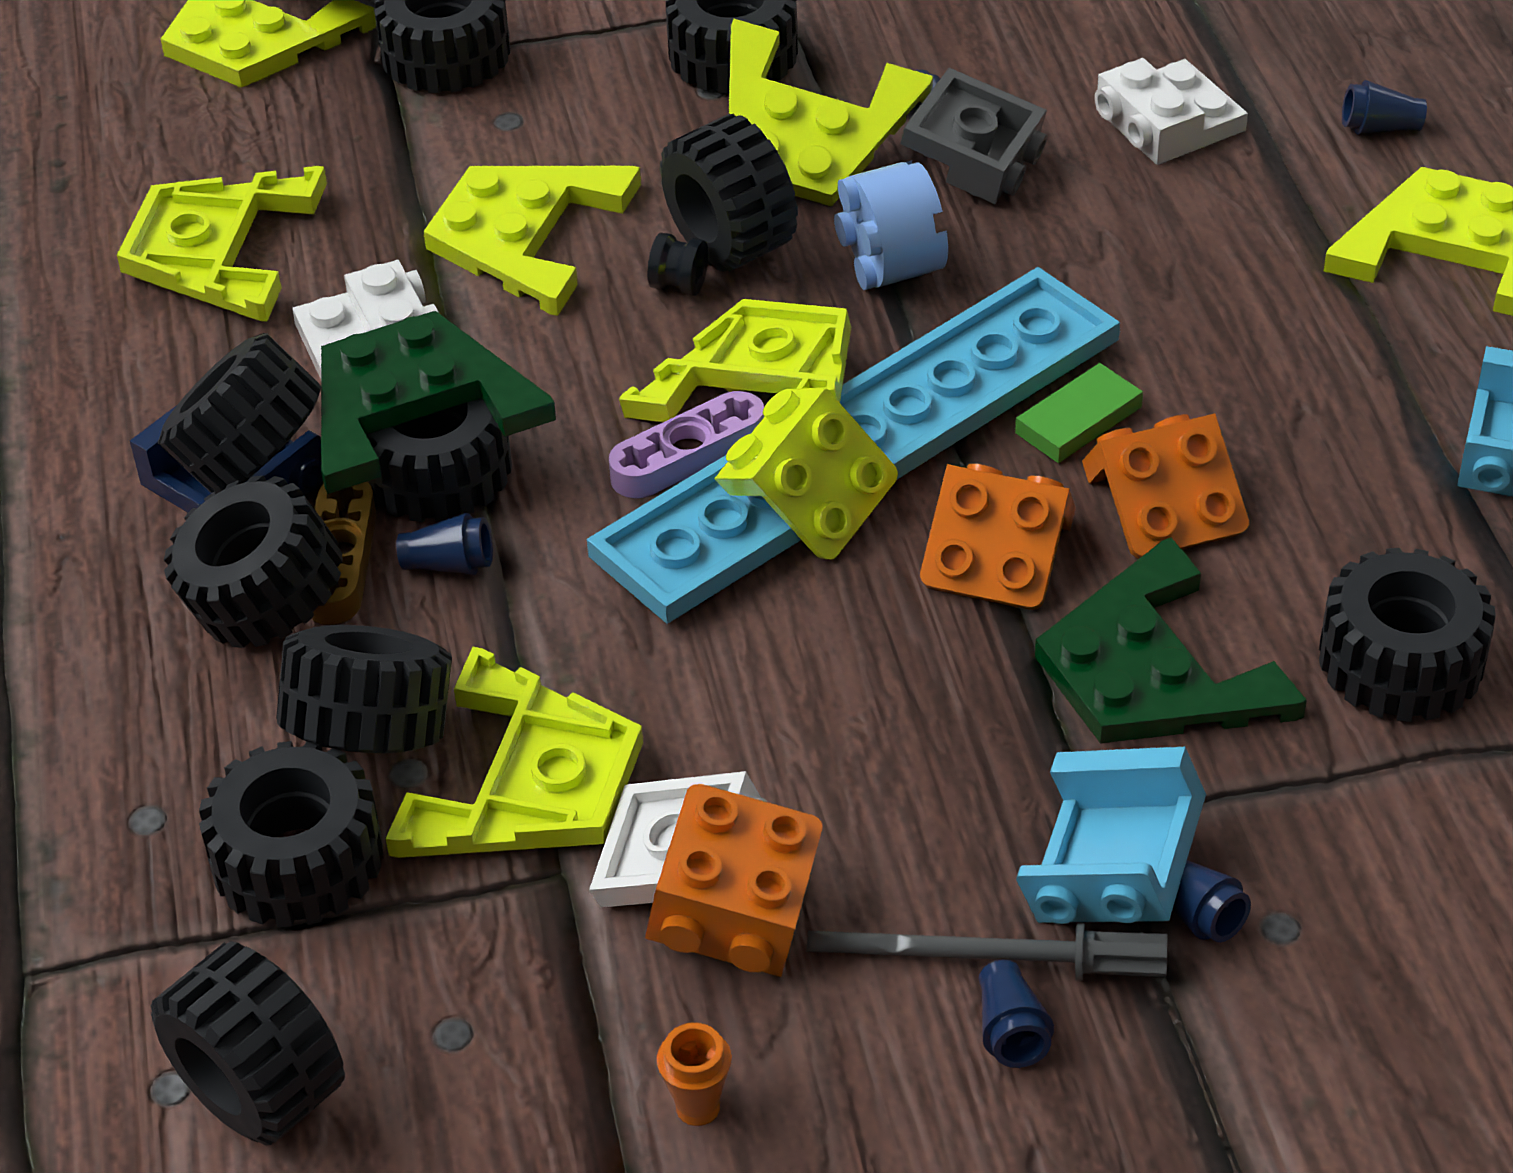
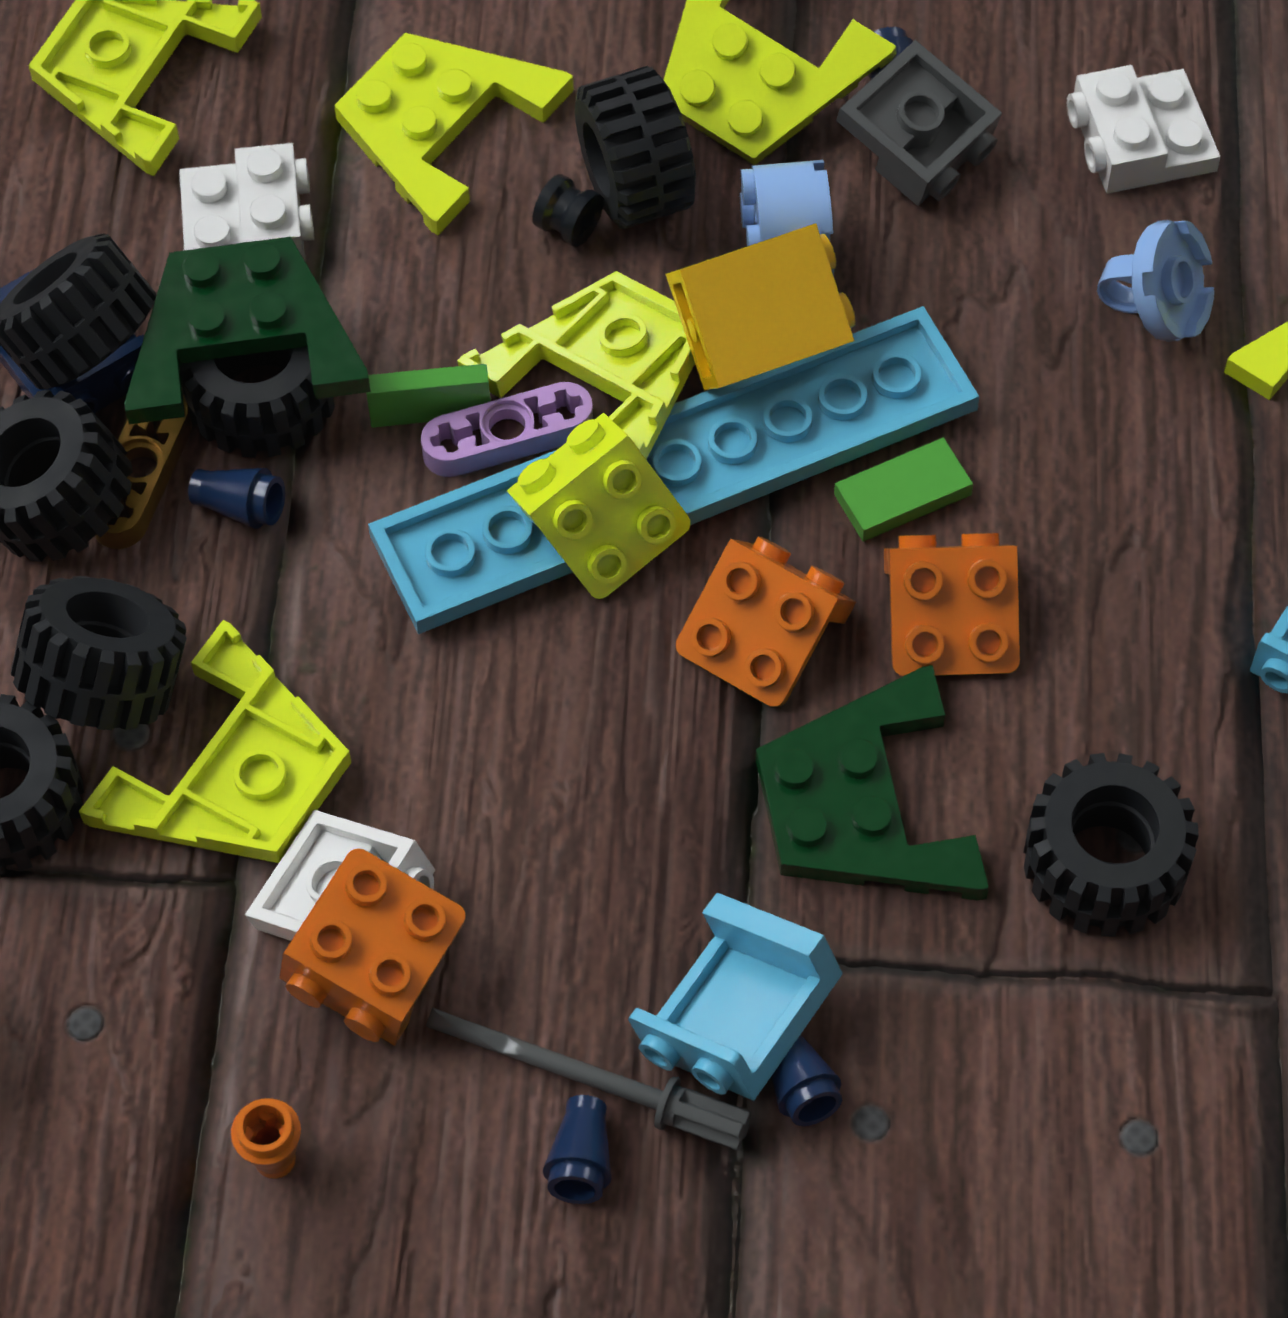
camera: 15 degrees right, 15 degrees up
(594, 429) = (425, 393): none -> bright green tile
(898, 277) = (762, 307): none -> yellow panel
(1245, 200) = (1164, 281): none -> light blue tile

